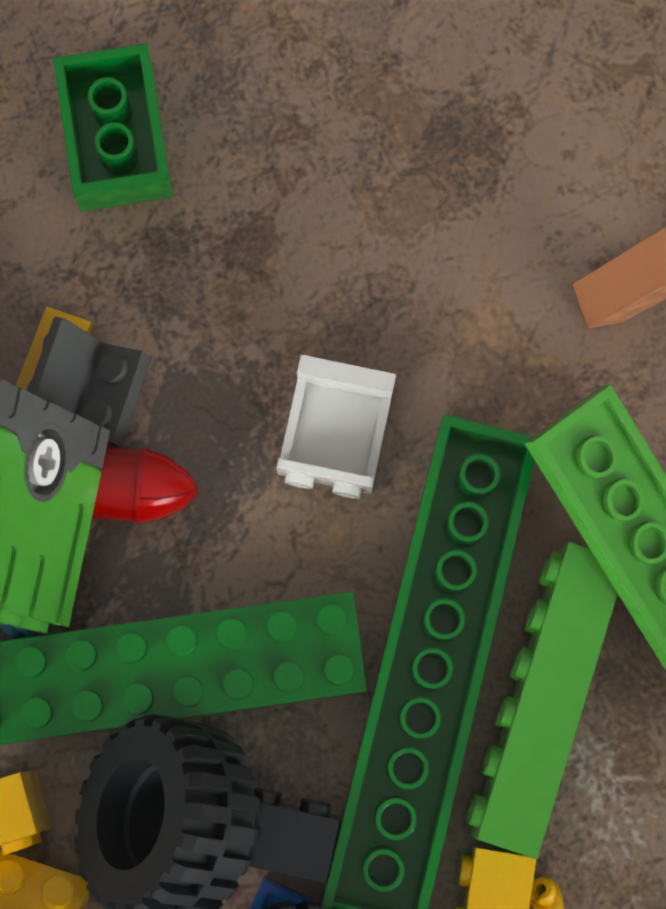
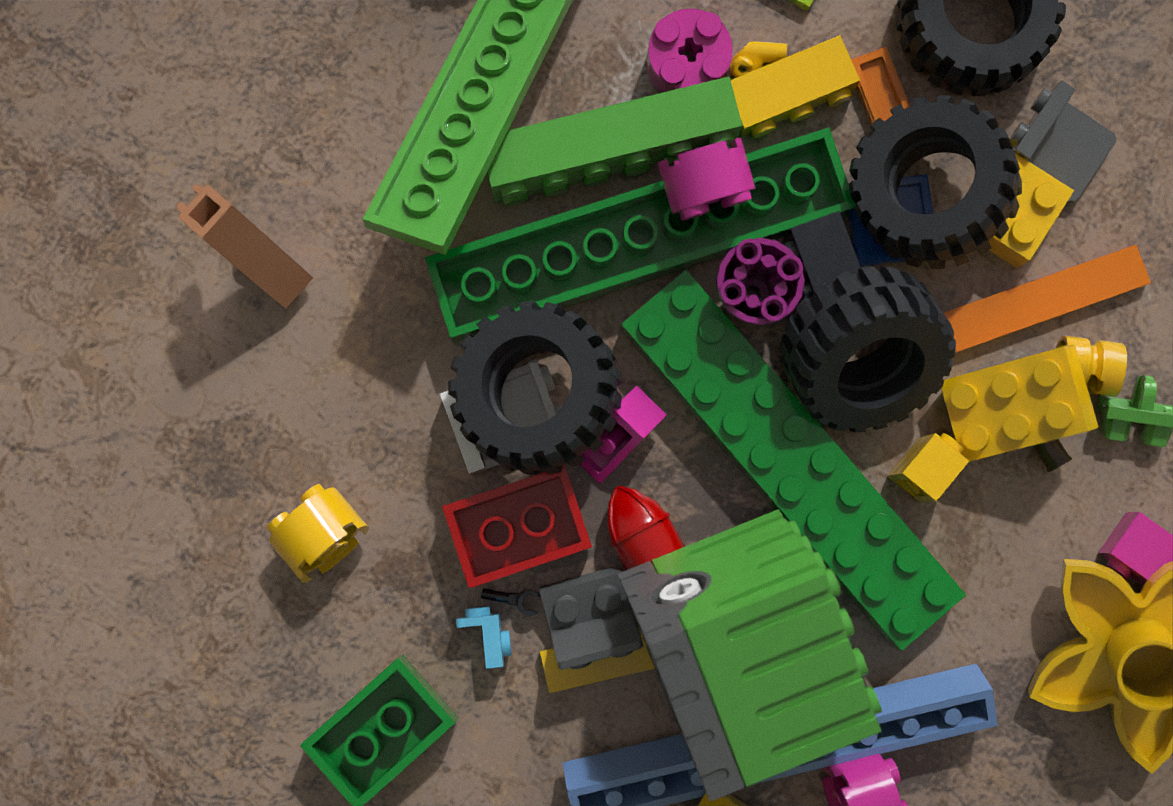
camera: 125 degrees left, 5 degrees up
(128, 285) = (496, 642): none -> medium azure bracket
(157, 328) = (513, 599): none -> black hand
(220, 369) = (516, 527): none -> red brick
(247, 526) = (634, 422): none -> dark pink slope
(275, 755) = (768, 268): none -> magenta cone
(336, 180) = (316, 532): none -> yellow brick
(381, 416) = (497, 351): none -> black tyre
(441, 764) = (706, 178): none -> dark pink brick
(618, 844) = (694, 32): none -> dark pink brick

